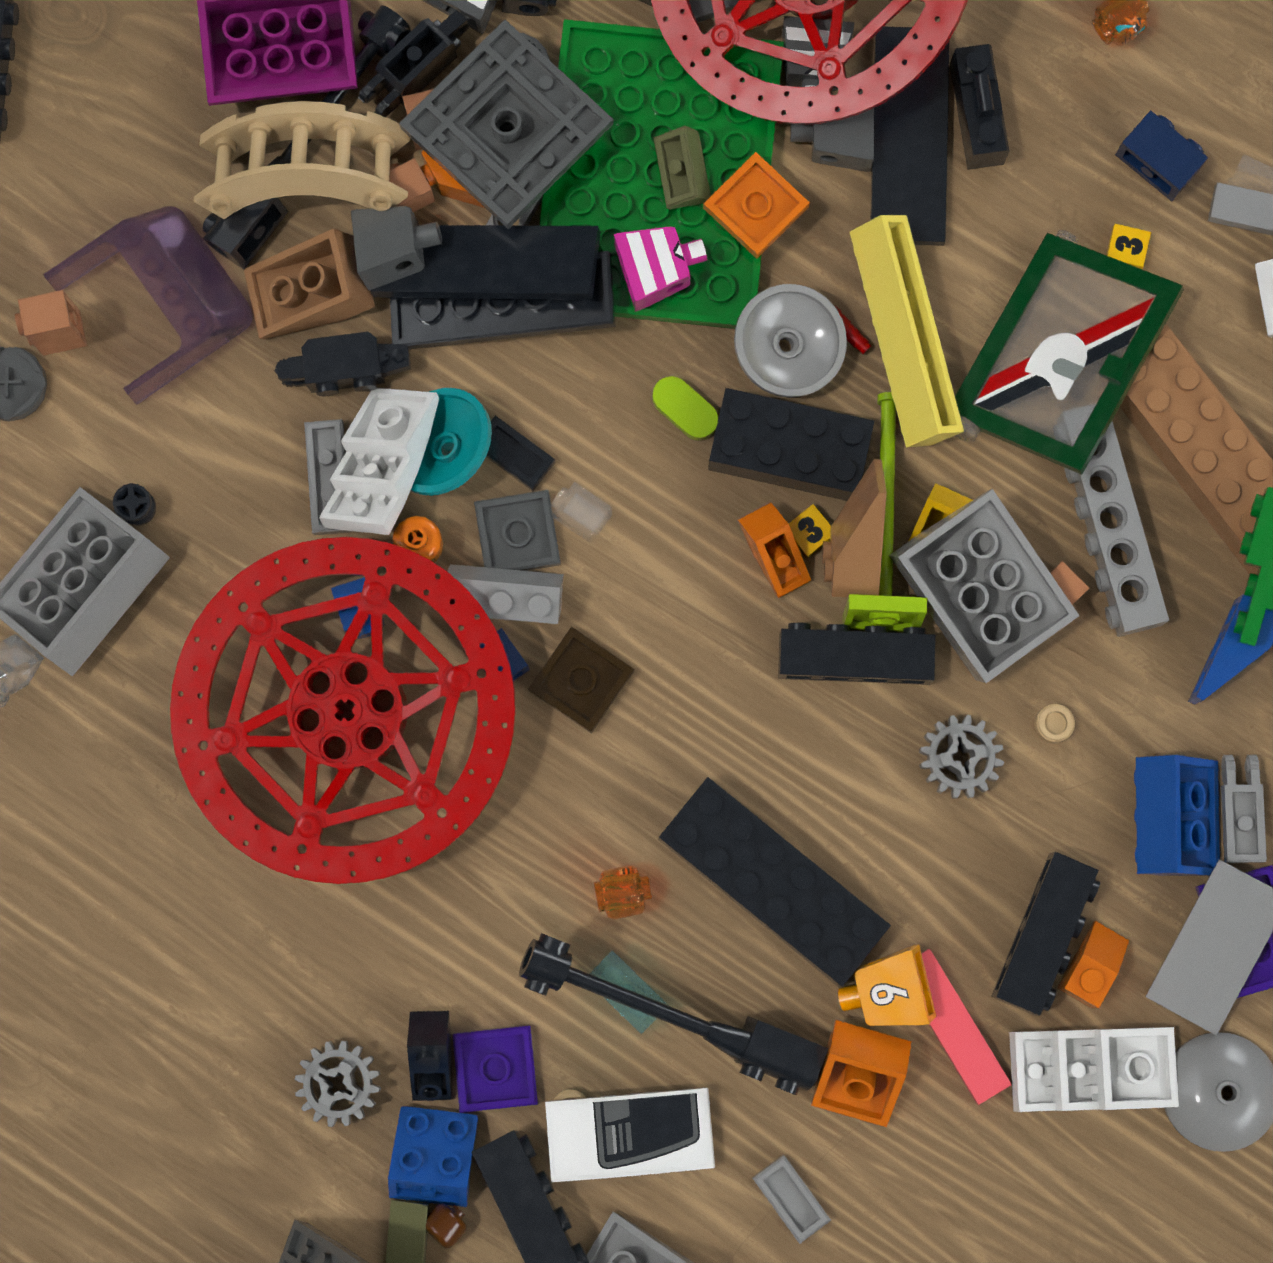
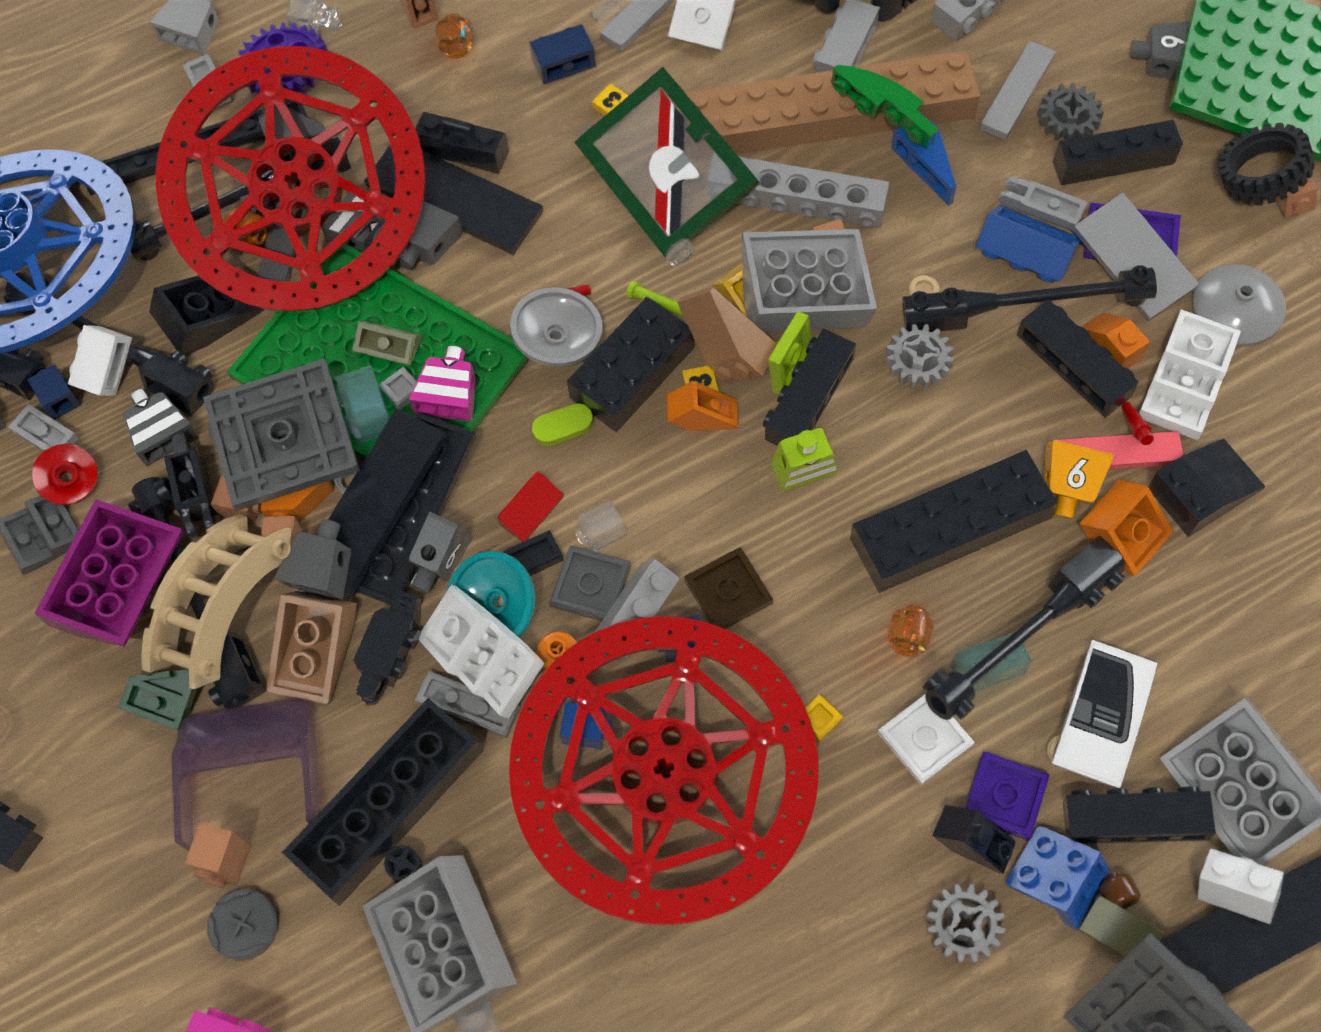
camera: 60 degrees left, 15 degrees down
(180, 168) = (159, 697): none -> dark green wing
(182, 451) = (383, 801): none -> black brick
(468, 358) = (437, 551): none -> dark grey torso
(486, 841) = (823, 717): none -> yellow tile
(500, 957) = (924, 740): none -> white plate
(571, 425) = (529, 507): none -> red slope
(591, 186) = (363, 403): none -> clear light blue brick
(633, 213) = (398, 387): none -> light grey tile
(756, 205) = (444, 304): orange plate -> none
(767, 690) = (806, 459): none -> lime torso
(791, 1199) = (1202, 622): light grey tile -> none
(906, 331) = (593, 249): light yellow brick -> none
(960, 1142) = (1204, 485): none -> black slope
(993, 1036) = (1137, 424): none -> red animal
(1044, 772) = (953, 307): none -> black bar

